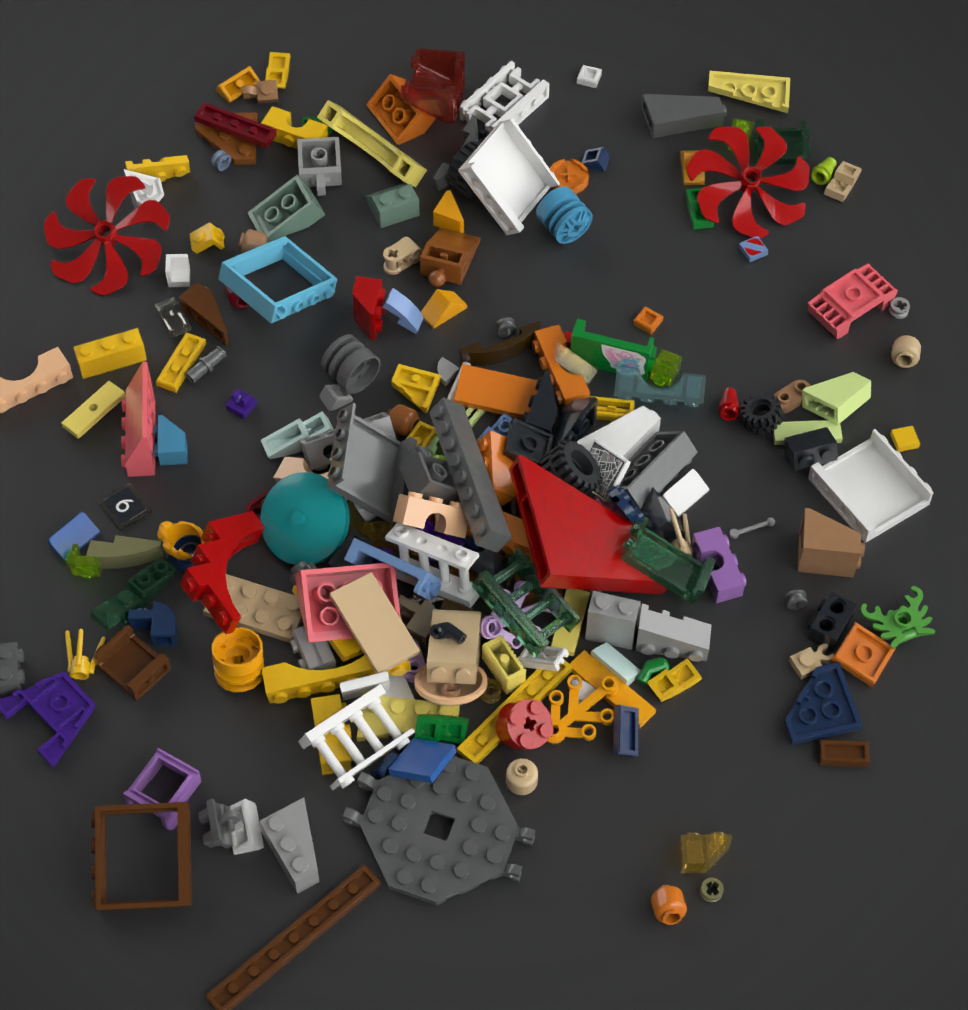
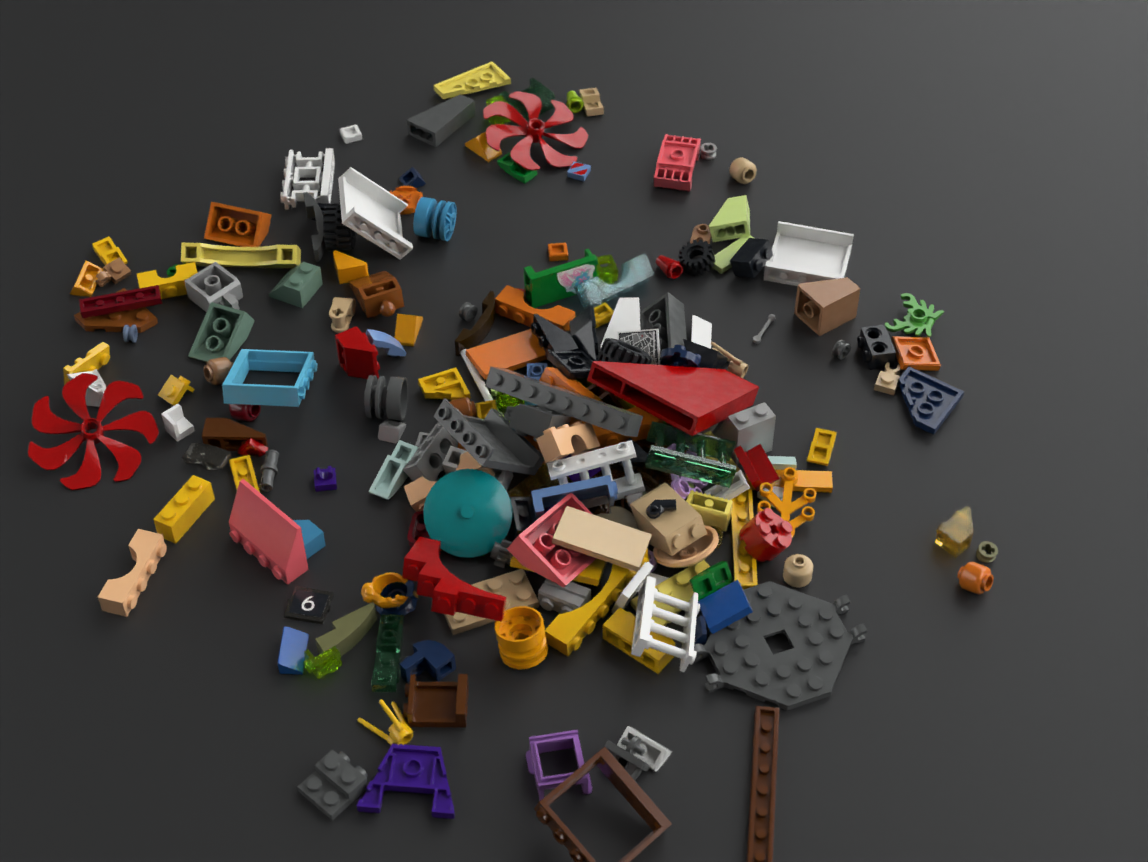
camera: 40 degrees left, 10 degrees down
(93, 409) = (211, 555): light yellow tile -> none
(211, 333) = (252, 447): none -> red tile
(292, 844) = (696, 729): light grey wedge -> none
(436, 83) = (251, 188): clear red windscreen -> none
(447, 371) = (452, 362): light grey tile -> none
(574, 363) = (542, 299): clear yellow slope -> none
(585, 654) = (756, 465): none -> red panel
(626, 731) = (830, 495): dark blue tile -> none
(650, 667) = (799, 450): green arm -> none
(666, 562) = (766, 378): clear green panel -> none
(672, 636) = (797, 419): light grey wedge -> none
(727, 581) = (759, 353): medium lavender arch -> none
(844, 753) = (968, 417): reddish brown tile -> none
(905, 438) = (797, 217): yellow tile -> none

